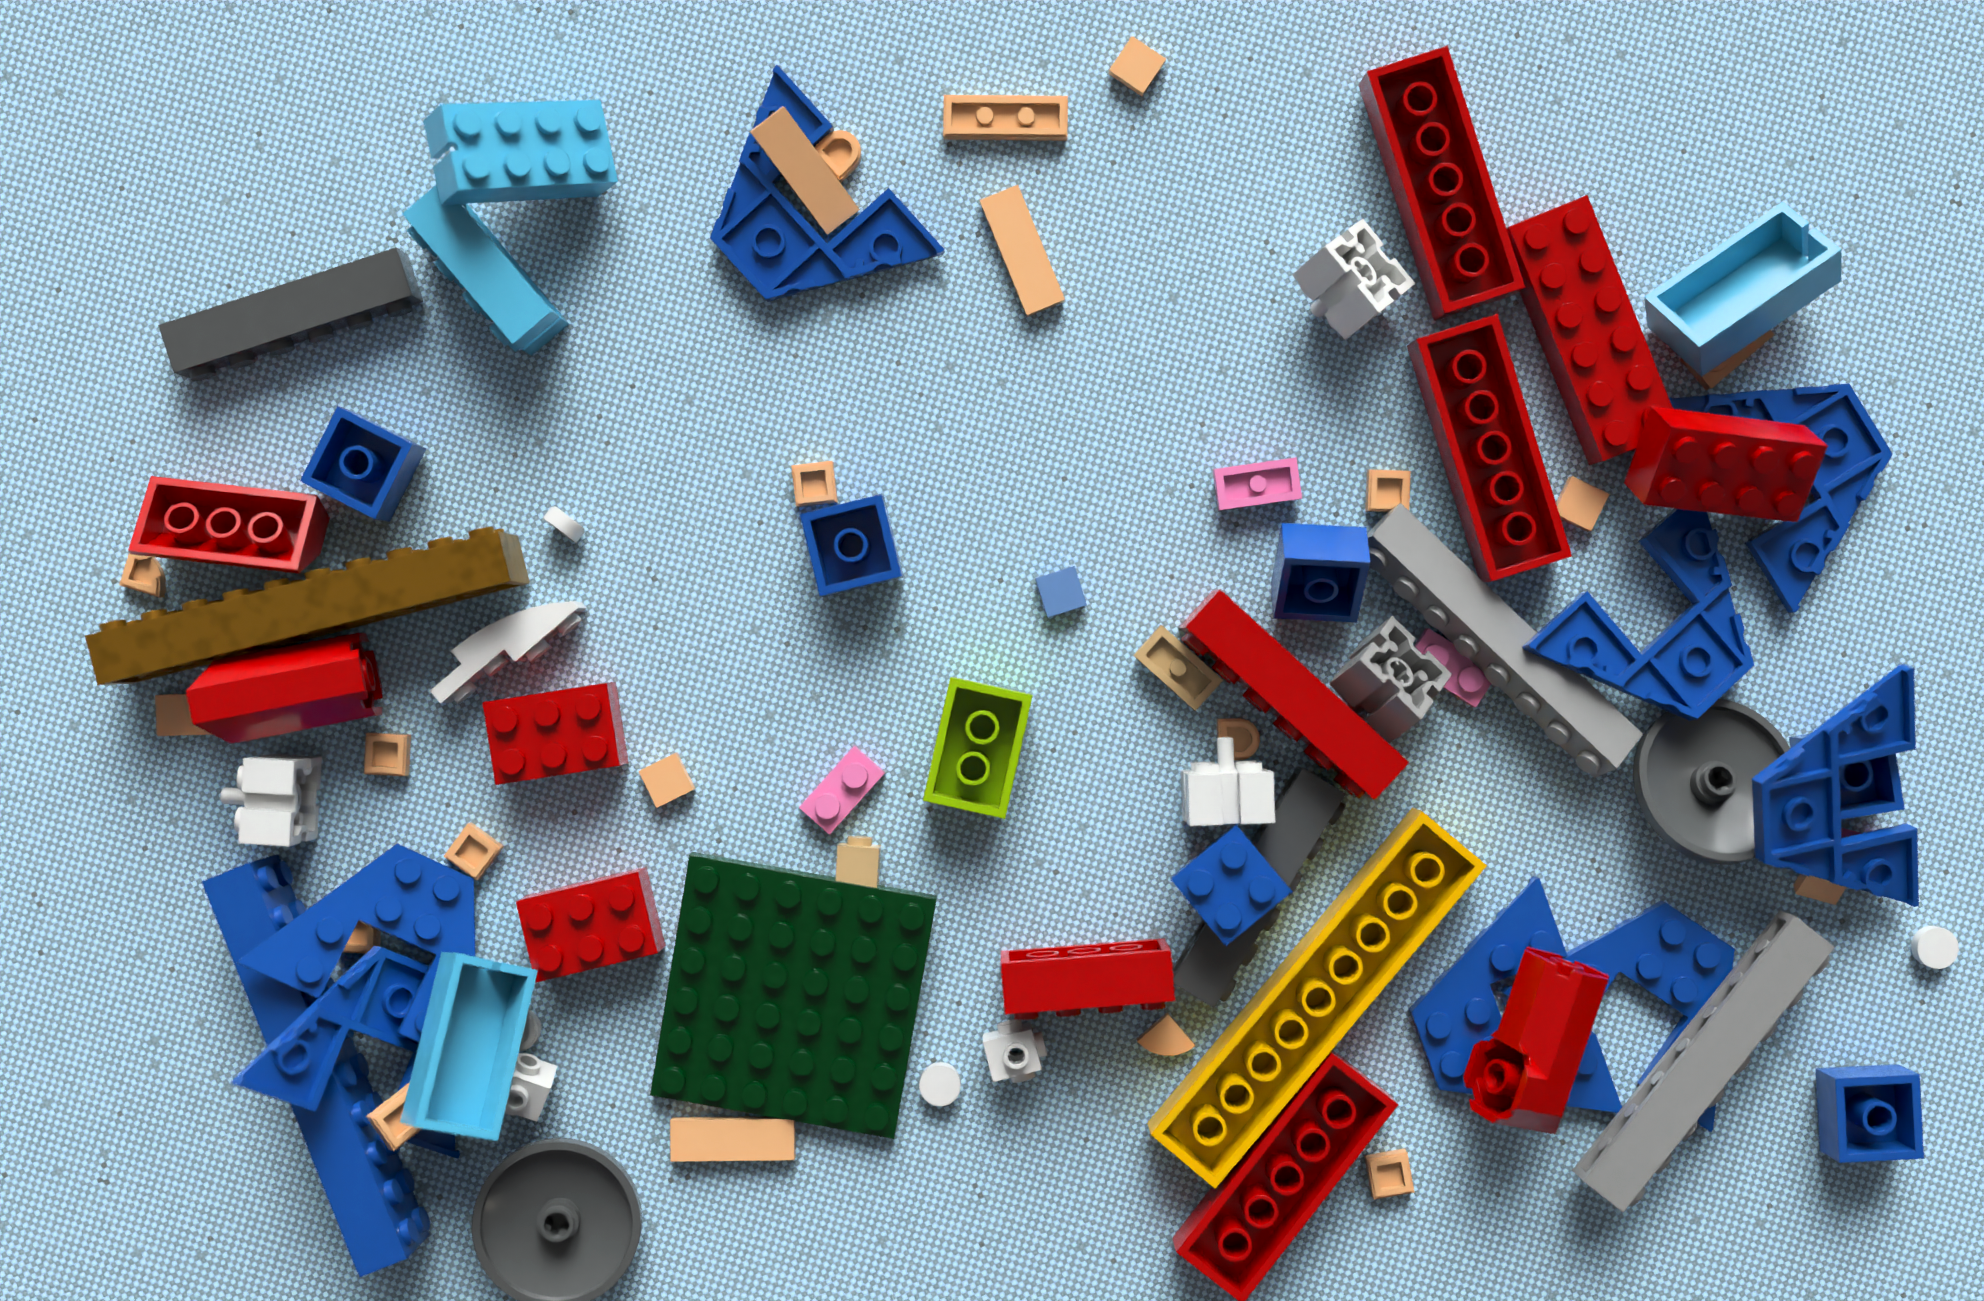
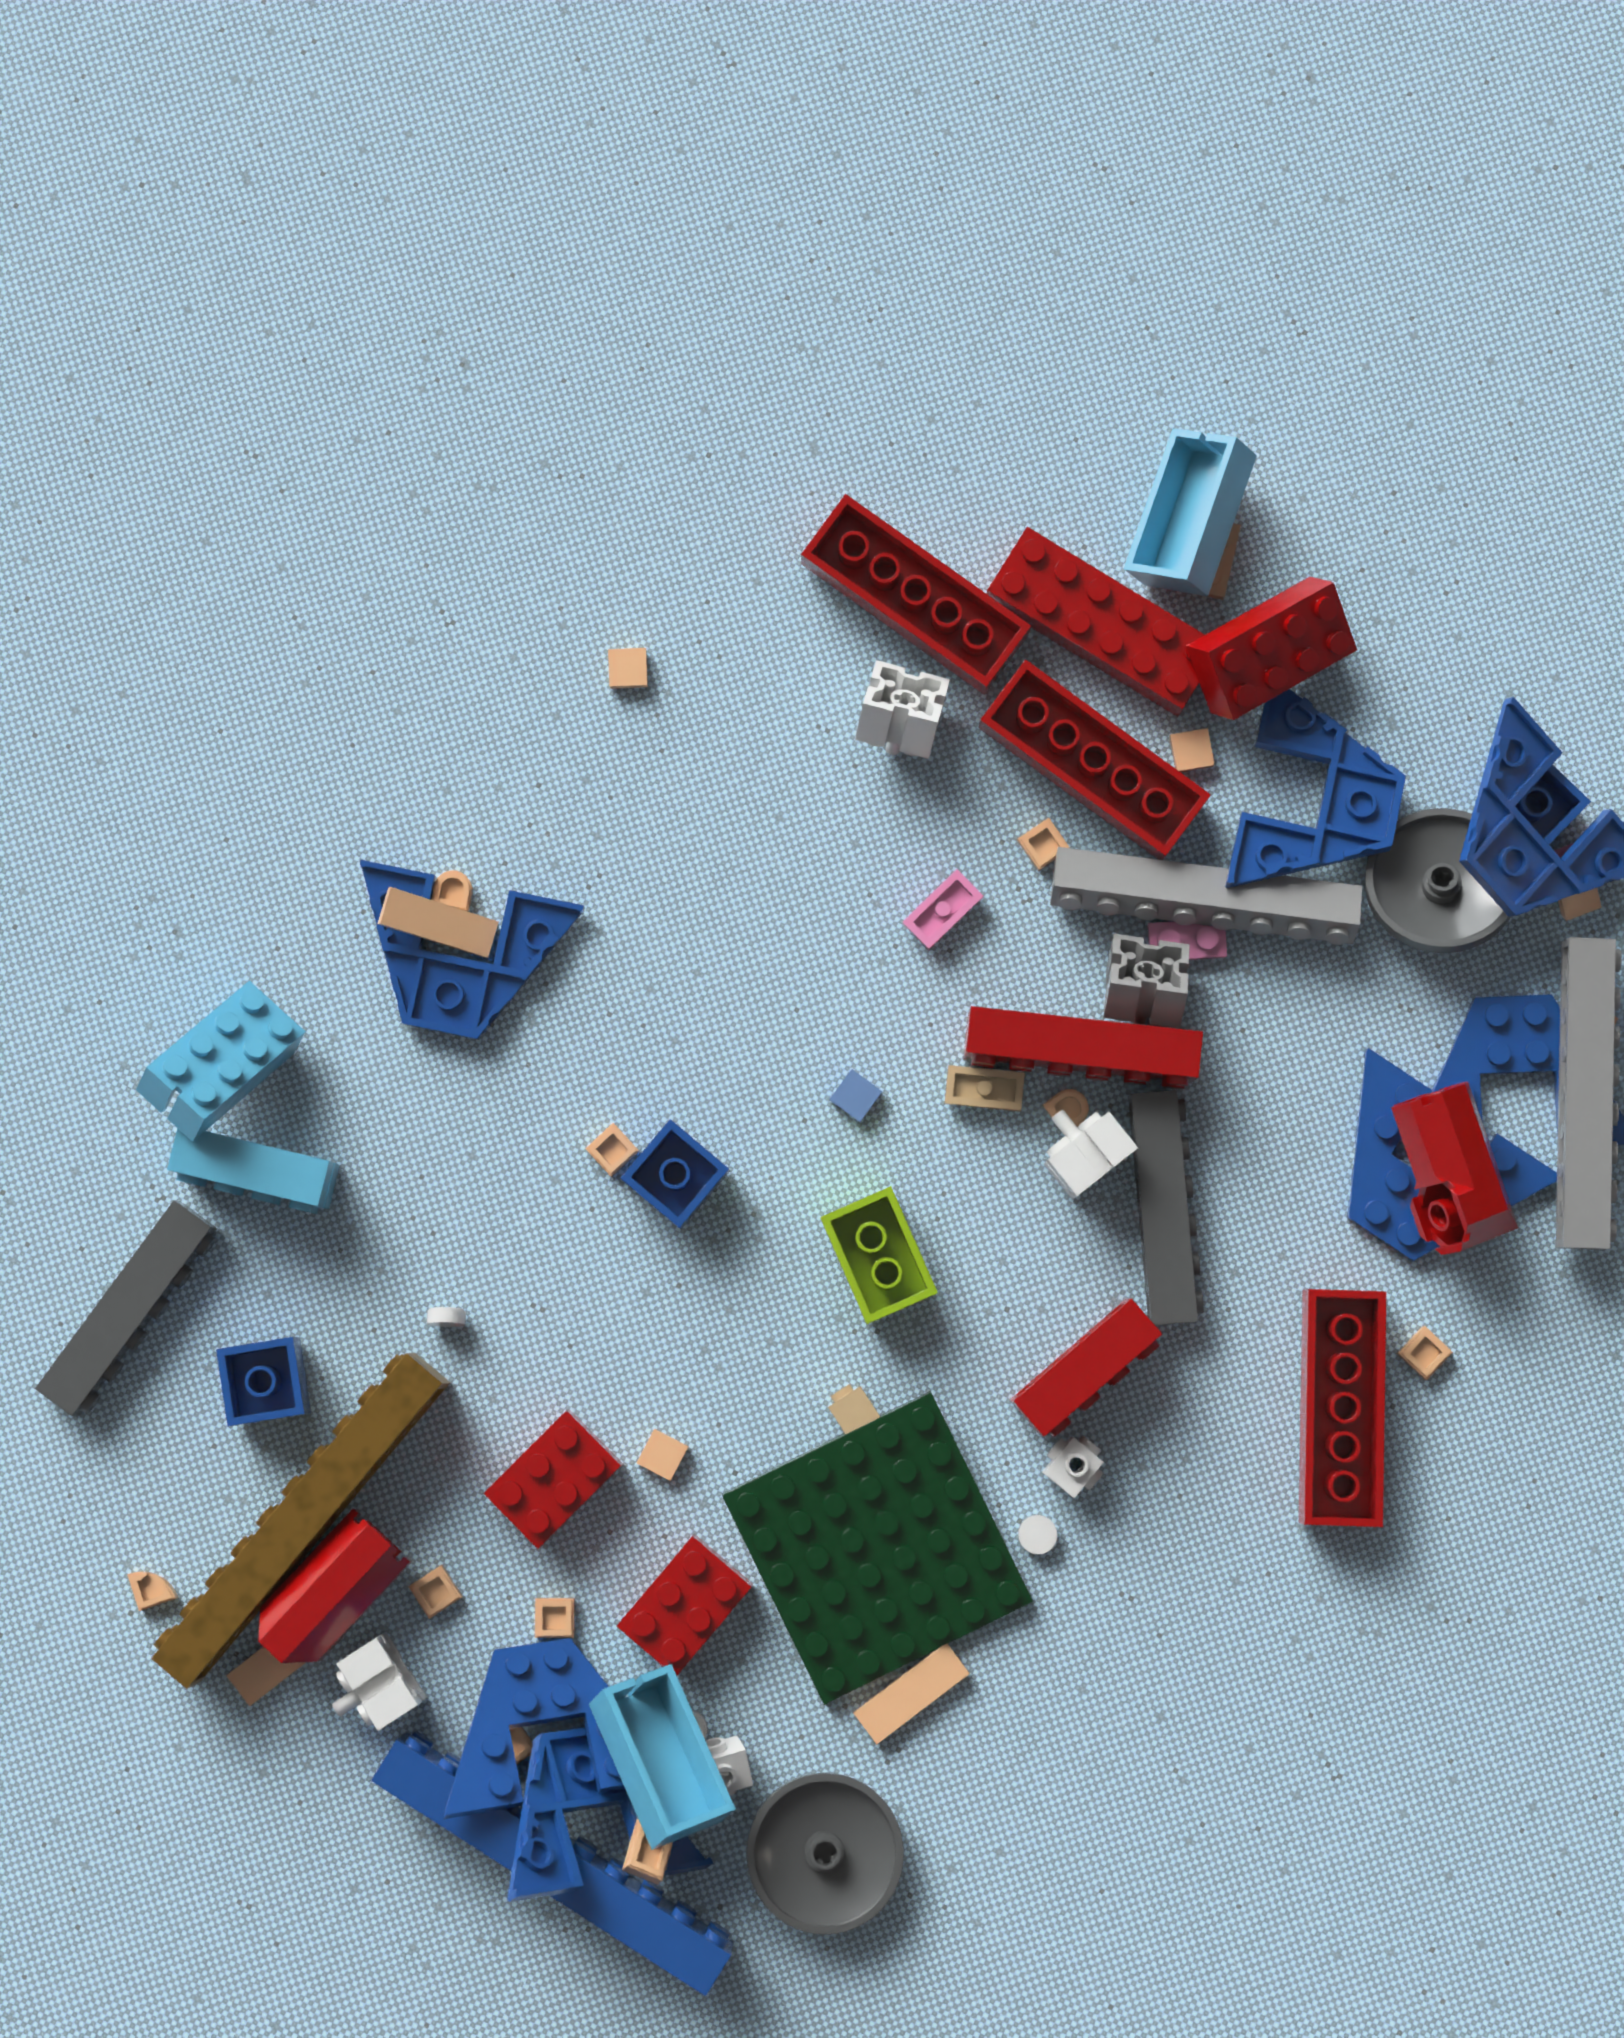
camera: 30 degrees left, 5 degrees down
(229, 525) = (196, 1499): red slope -> none
(519, 635) = (471, 1424): white slope -> none
(842, 789) = (800, 1365): bright pink plate -> none
(1005, 117) = (557, 775): light nougat tile -> none
(1022, 250) = (641, 864): light nougat tile -> none
(1165, 1038) = (1181, 1373): light nougat tile -> none
(1230, 884) = (1139, 1217): blue brick -> none
(1315, 996) = (1267, 1258): yellow brick -> none
(1320, 572) = (1036, 941): blue brick -> none
(1856, 452) = (1366, 593): blue wing -> none

